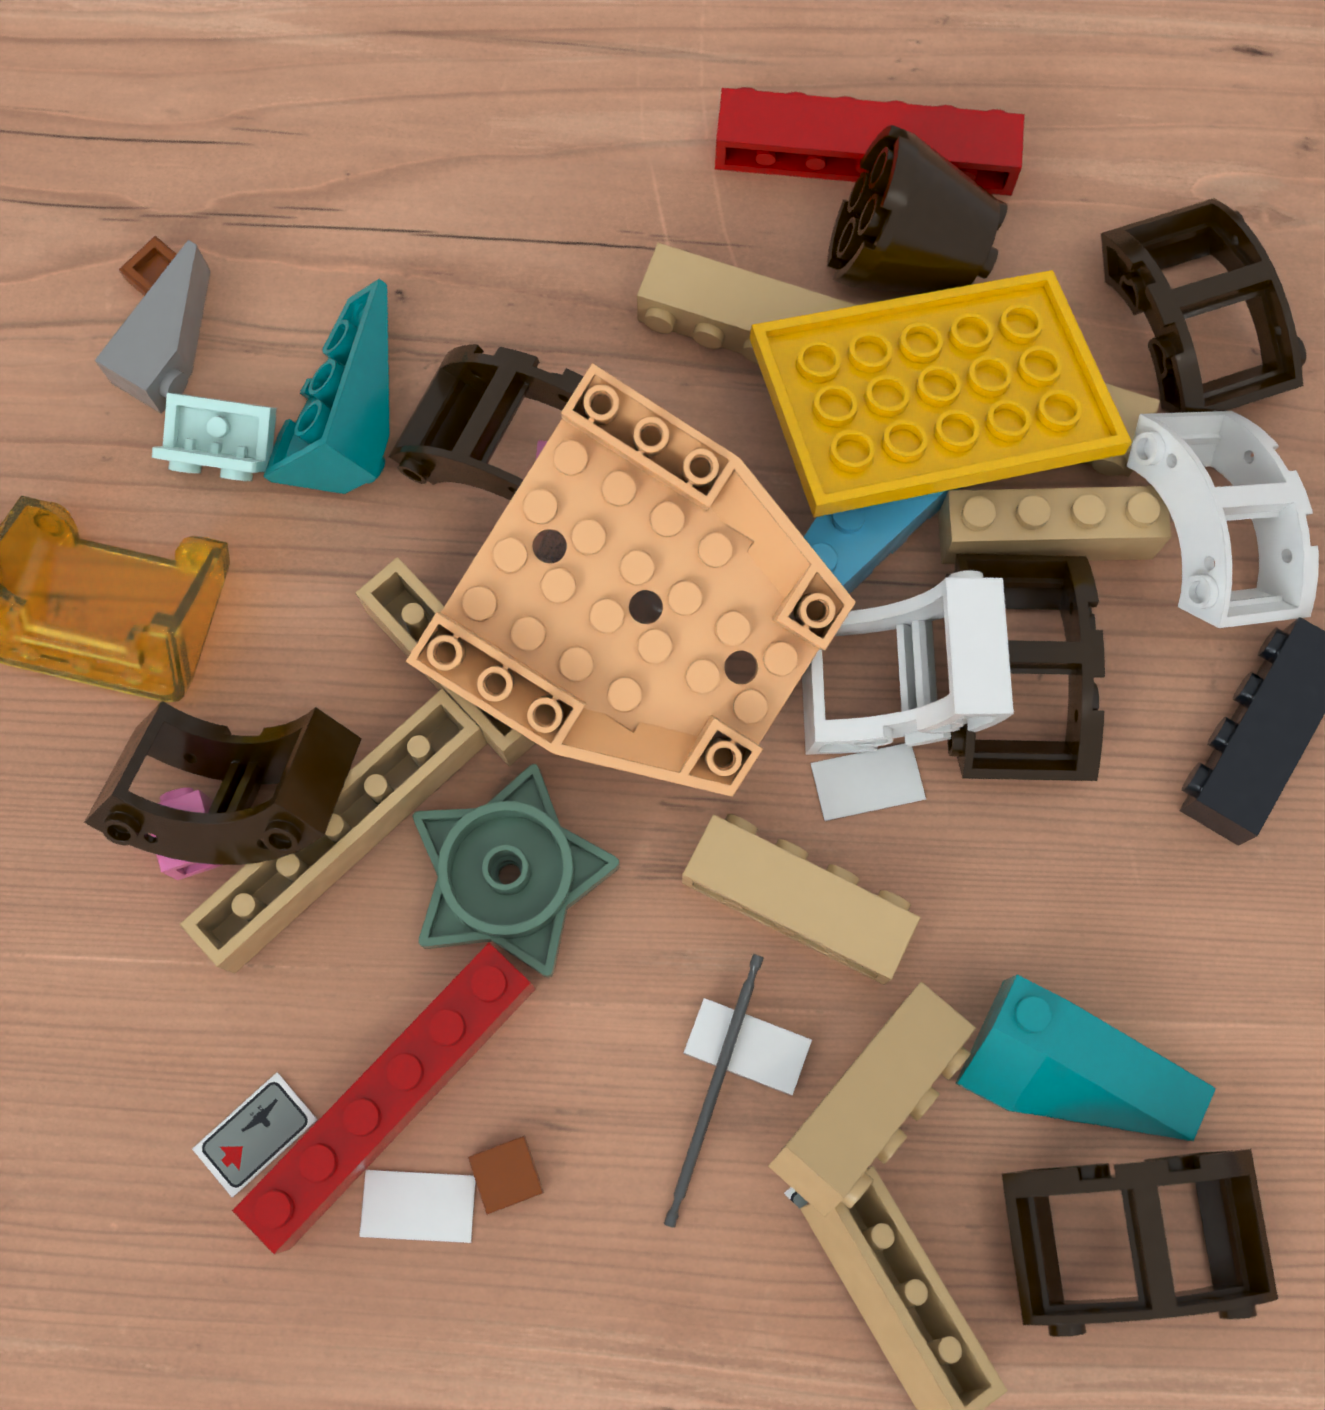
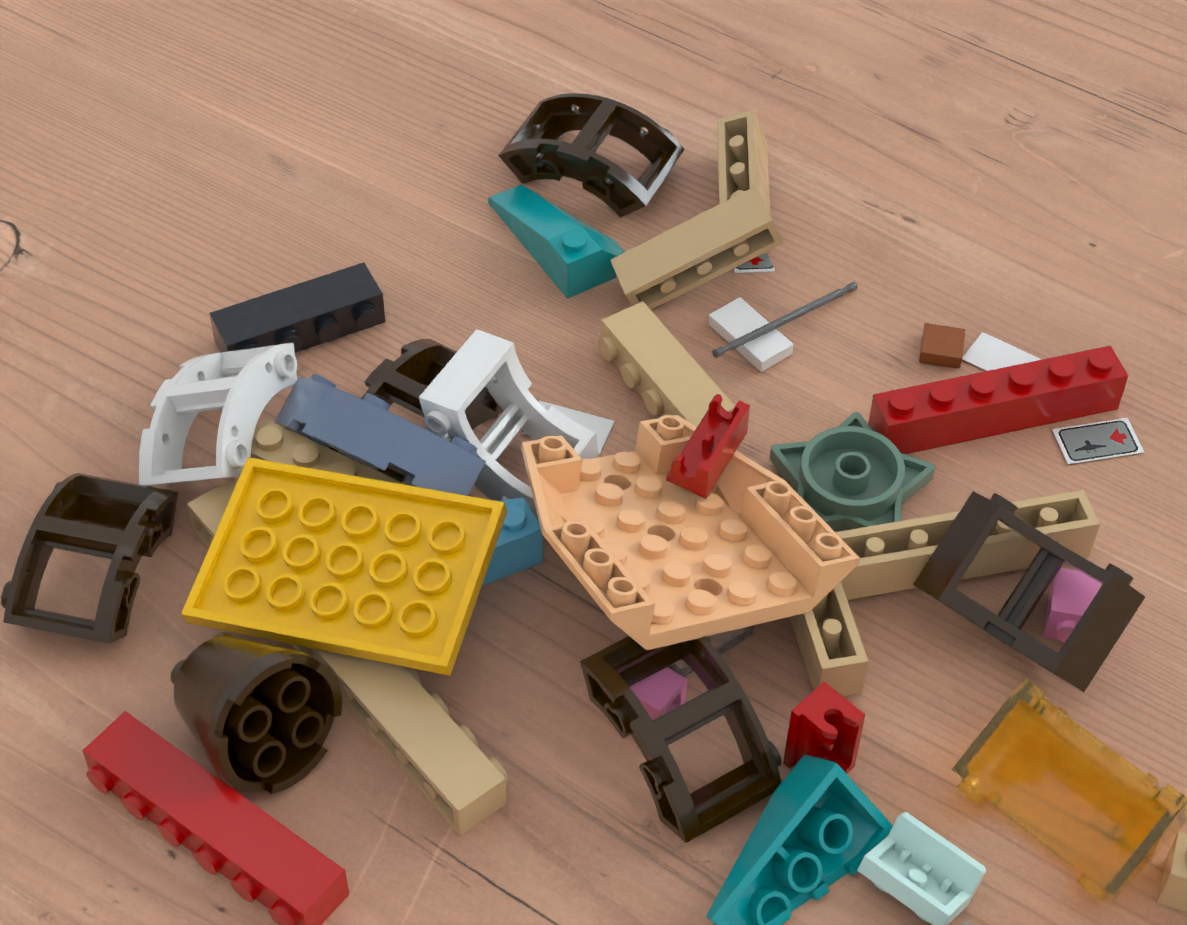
camera: 150 degrees left, 25 degrees down
(372, 507) = (824, 728): none -> red hinge
(657, 735) = (710, 448): none -> red hinge
(1026, 536) = (377, 437): none -> sand blue brick

